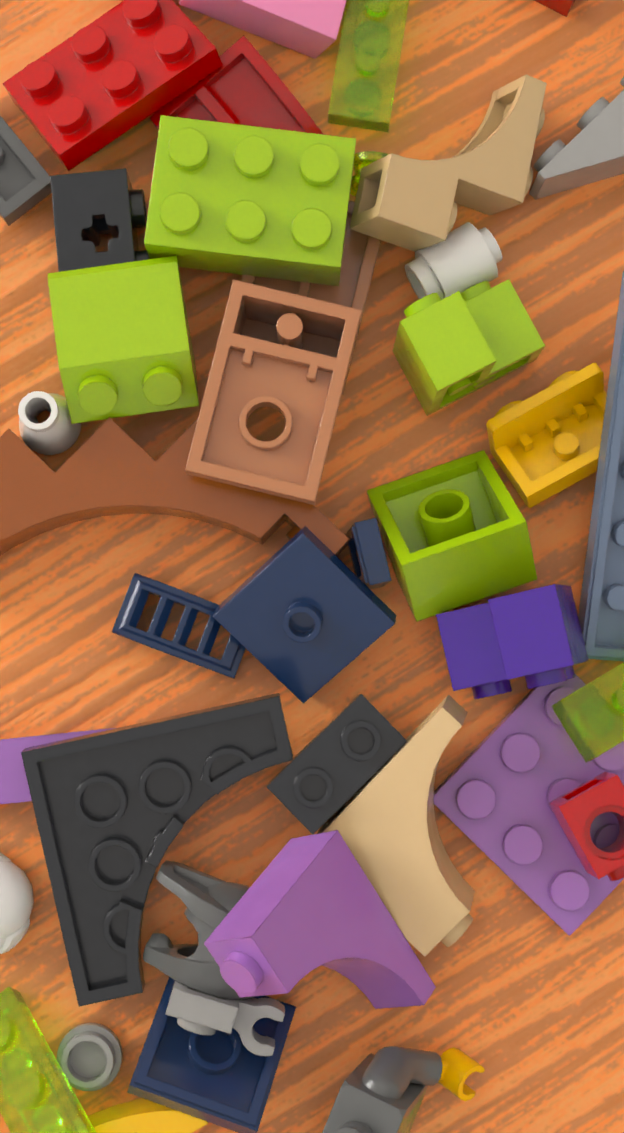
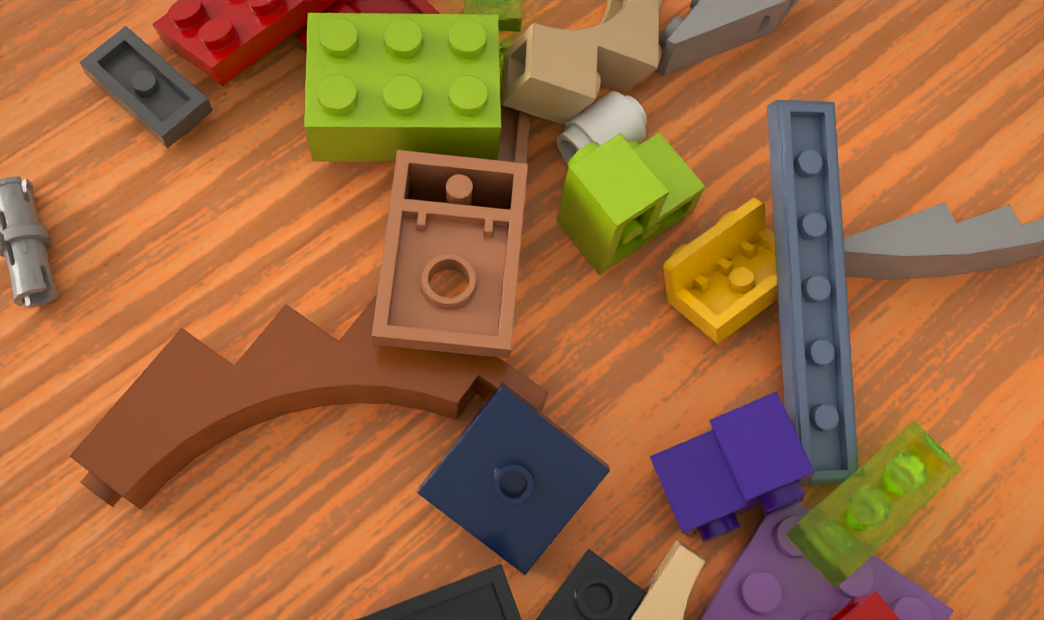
camera: 15 degrees left, 15 degrees down
(56, 432) = (222, 319): white cone -> none
(93, 206) = (253, 118): black brick -> none
(123, 339) = (292, 228): lime slope -> none
(133, 607) = (326, 519): dark blue slope -> none
(368, 554) = (569, 407): dark blue tile -> none
(453, 535) = (649, 380): lime slope -> none

